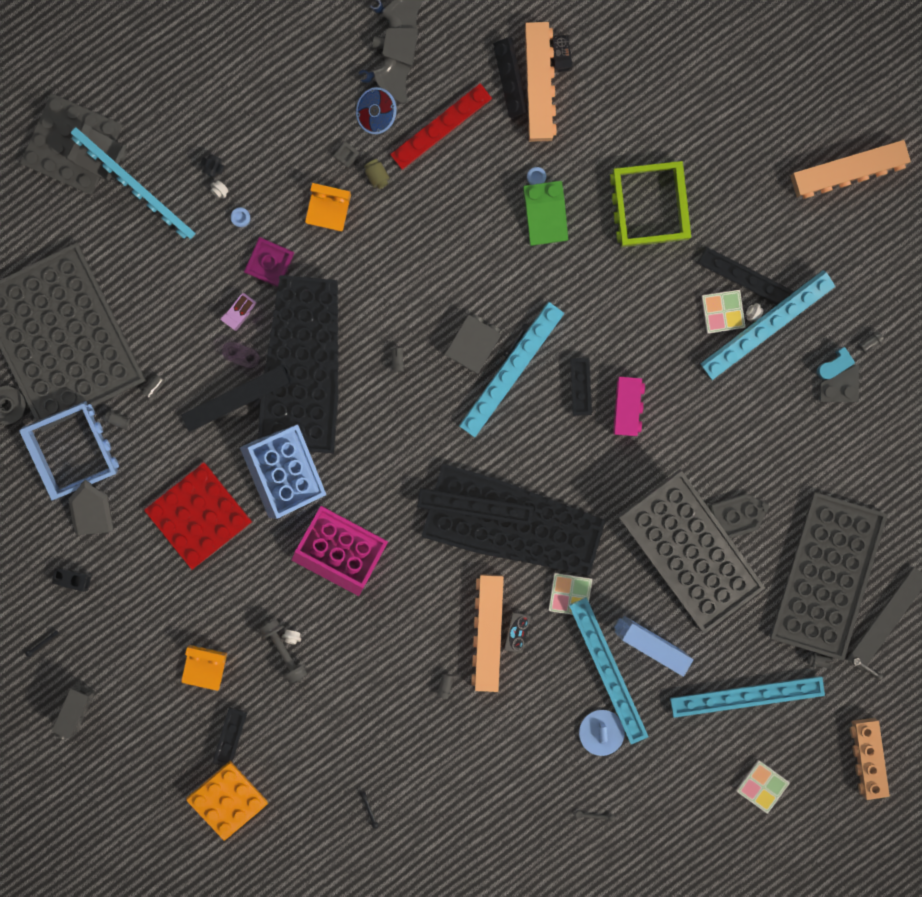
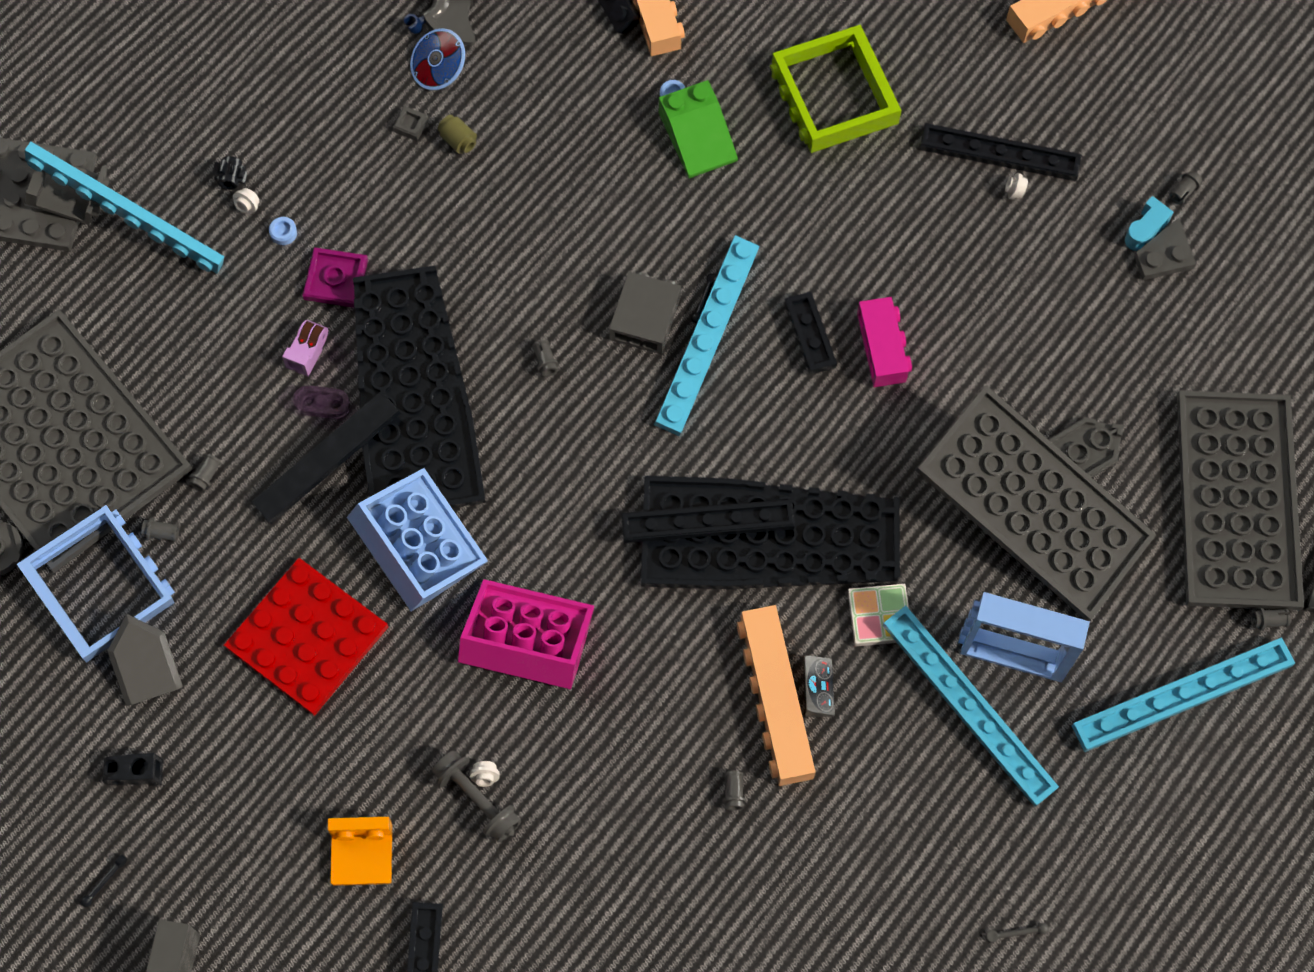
camera: 15 degrees left, 20 degrees down
(328, 207) = (400, 185): light orange bracket -> none
(441, 126) = (529, 63): red plate -> none
(601, 732) = (987, 803): light blue shield -> none
(723, 311) = (974, 197): tile -> none
(762, 786) = (1252, 822): tile -> none
(768, 324) = (1038, 196): medium azure plate -> none

